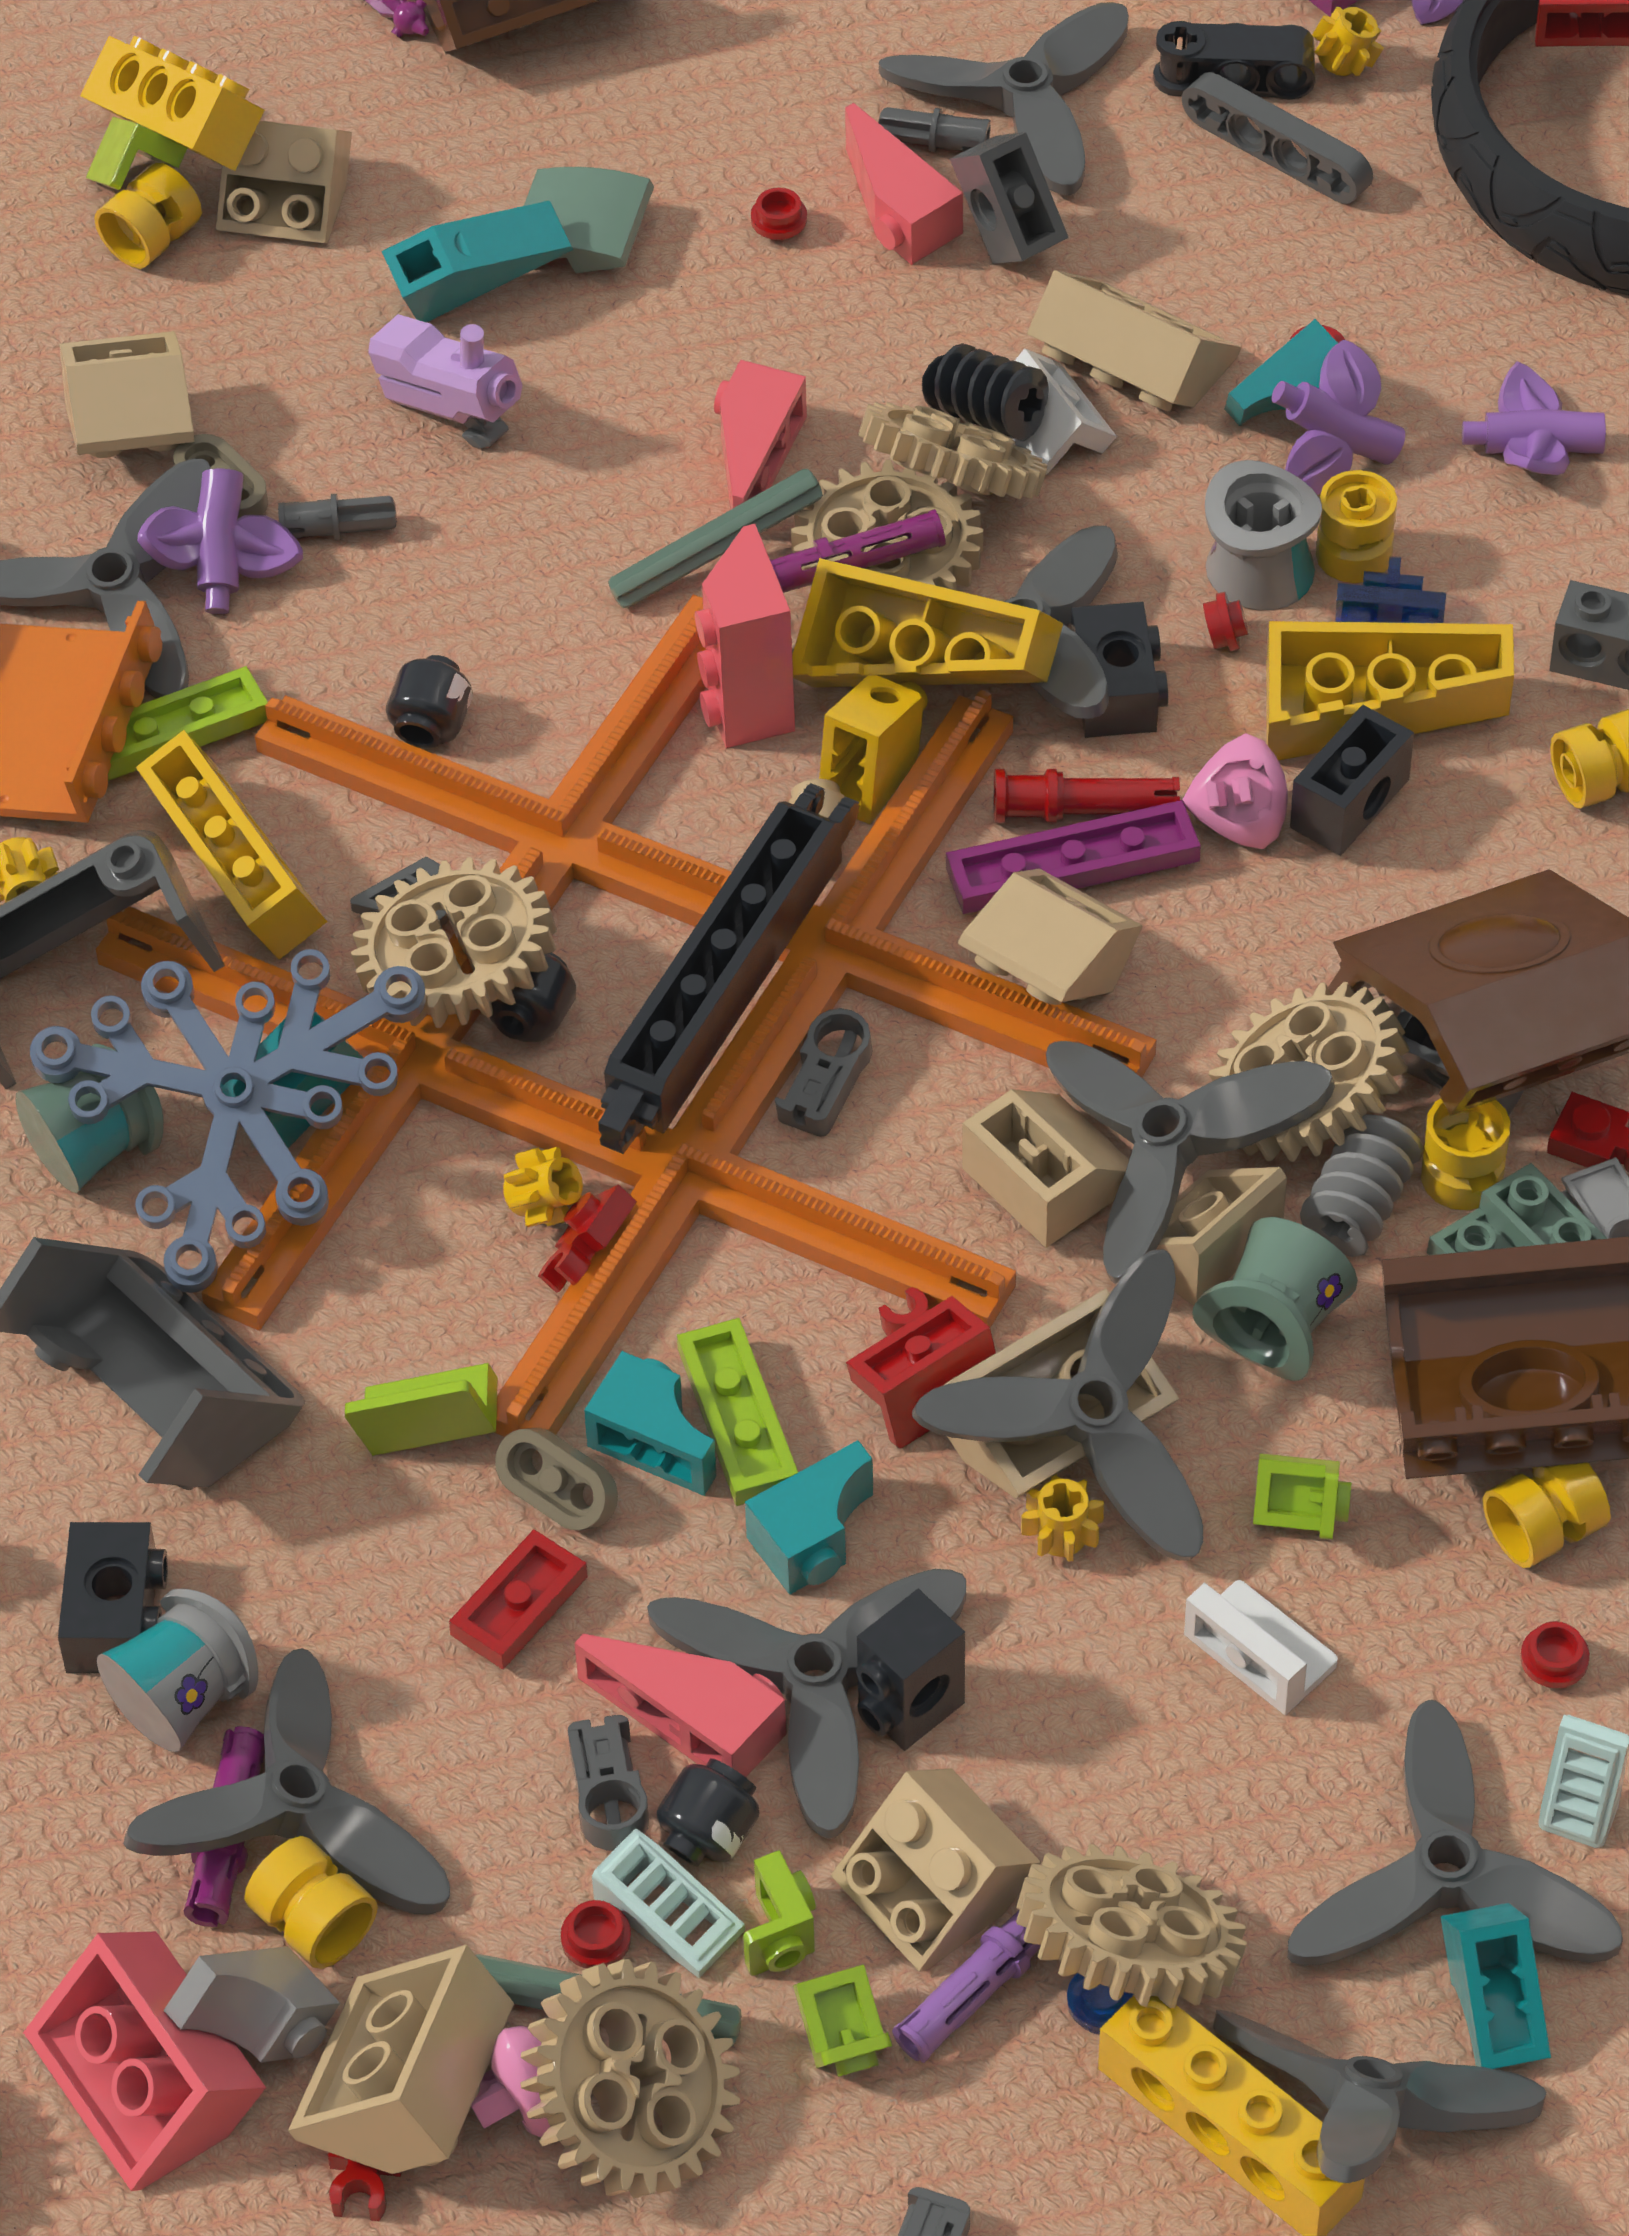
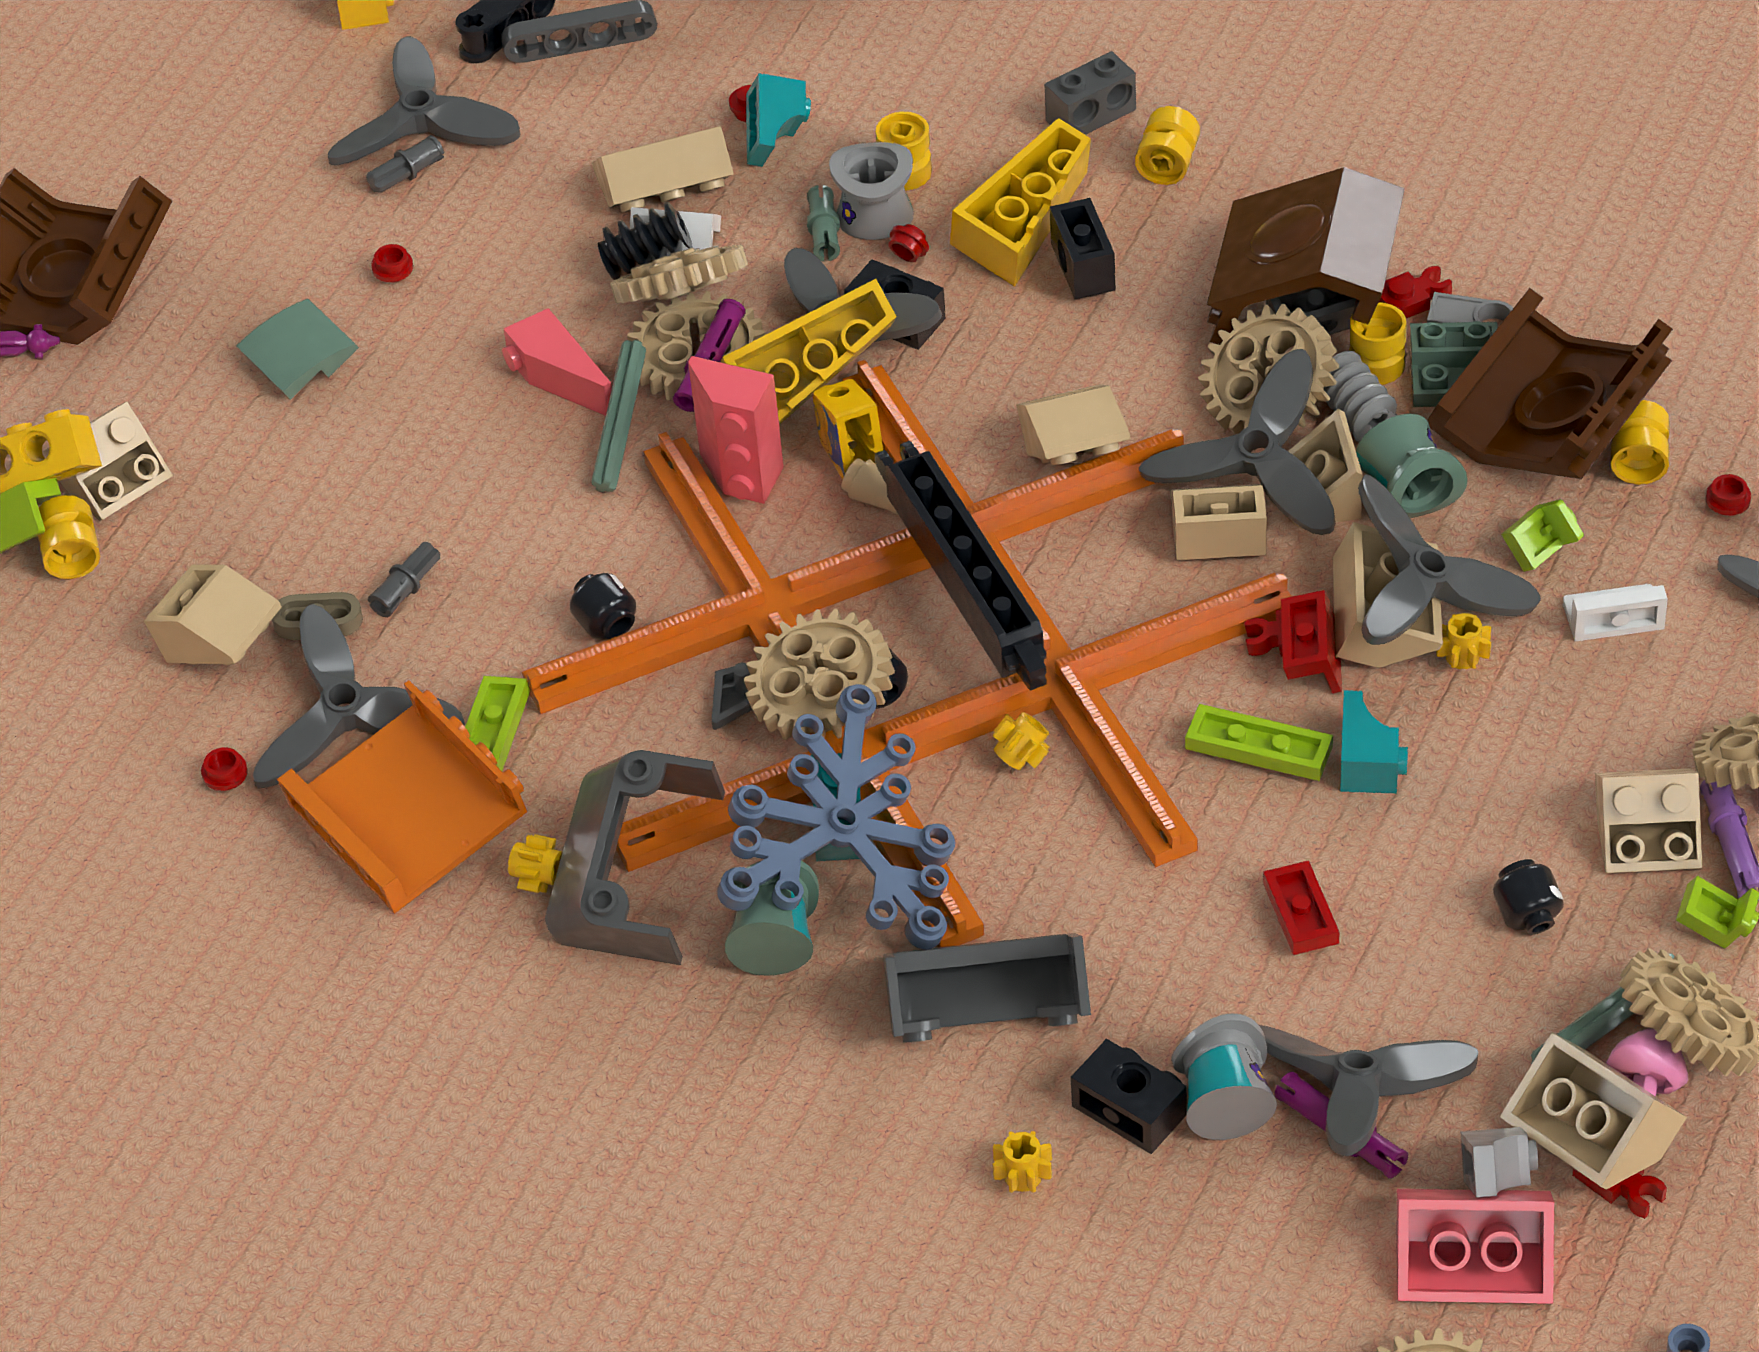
camera: 50 degrees left, 5 degrees down
(219, 540) = (376, 634): medium lavender plant -> none
(231, 845) = (580, 743): yellow brick -> none
(308, 1900) = (1437, 1105): yellow wheel -> none
(426, 1409) = (1131, 875): lime panel -> none
(446, 376) = (371, 462): lavender piece -> none
(473, 256) = (284, 405): teal slope -> none
(560, 1482) = (1233, 845): dark tan plate -> none
(591, 1227) = (1071, 740): red plate -> none
(595, 1934) = (1561, 993): red plate -> none
(606, 1776) = (1456, 934): dark grey piece -> none
(642, 1423) = (1235, 784): teal arch -> none
(642, 1854) = (1554, 967): light aqua slope -> none
(688, 1699) = (1446, 866): coral slope -> none
(788, 1906) = (1624, 899): lime bracket -> none
(821, 1719) = (1475, 805): dark grey piece -> none
(825, 1079) = (1058, 584): dark grey piece -> none
(904, 196) = (431, 201): coral slope -> none
(910, 1670) = (1521, 749): black brick -> none
(1009, 198) = (514, 151): dark grey brick -> none
(1053, 795) = (958, 377): red pin -> none
(1078, 853) = (1012, 383): magenta plate -> none
(1183, 534) = (823, 223): none -> sand green pin
(1241, 793) = (1042, 297): bright pink piece -> none
(1338, 418) = (822, 111): medium lavender plant -> none
(1389, 598) = (966, 167): clear blue hips -> none
(1533, 427) = (902, 52): medium lavender plant -> none

